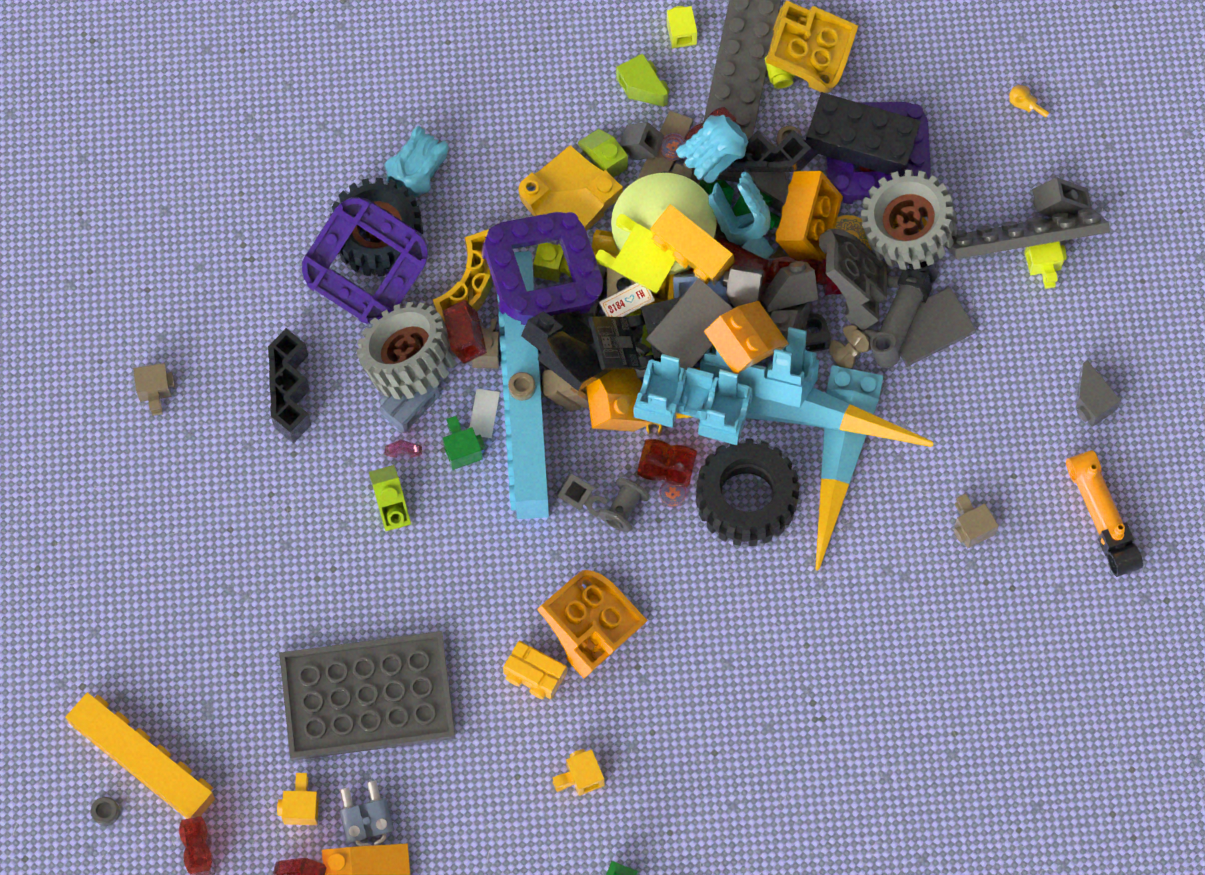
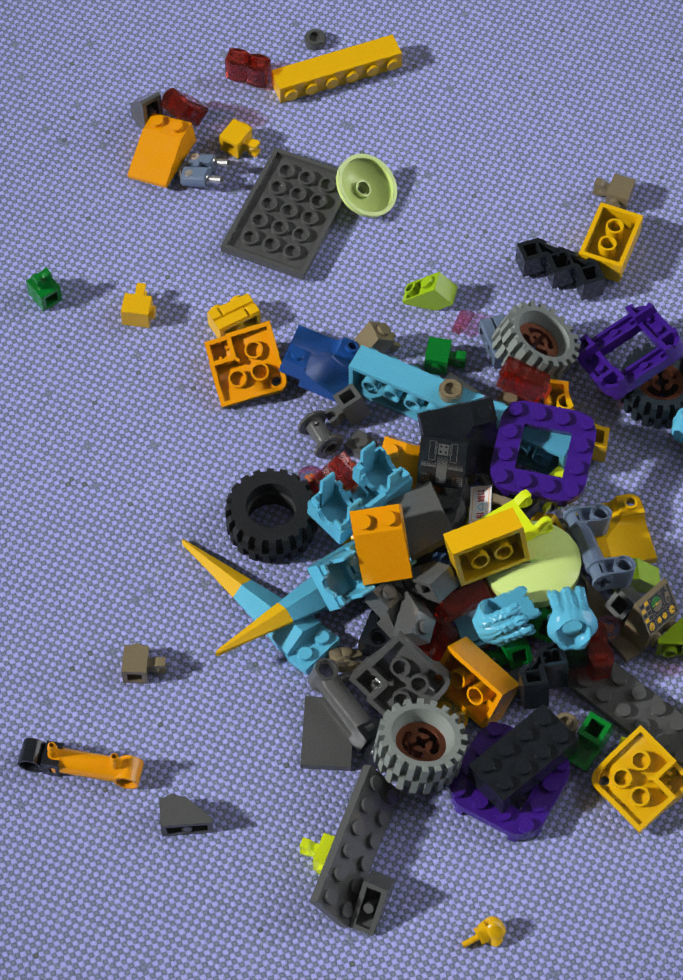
camera: 120 degrees right, 10 degrees down
(227, 355) = (612, 239): none -> yellow brick
(293, 628) = (373, 180): none -> yellowish green dish
(483, 511) = (377, 336): none -> dark tan brick
(539, 552) = (319, 361): none -> blue slope
(607, 467) = (357, 443): none -> dark grey plate
(637, 154) = (591, 522): none -> sand blue piece
(640, 107) = (651, 616): none -> dark tan slope
(795, 101) = (593, 738): none -> green brick

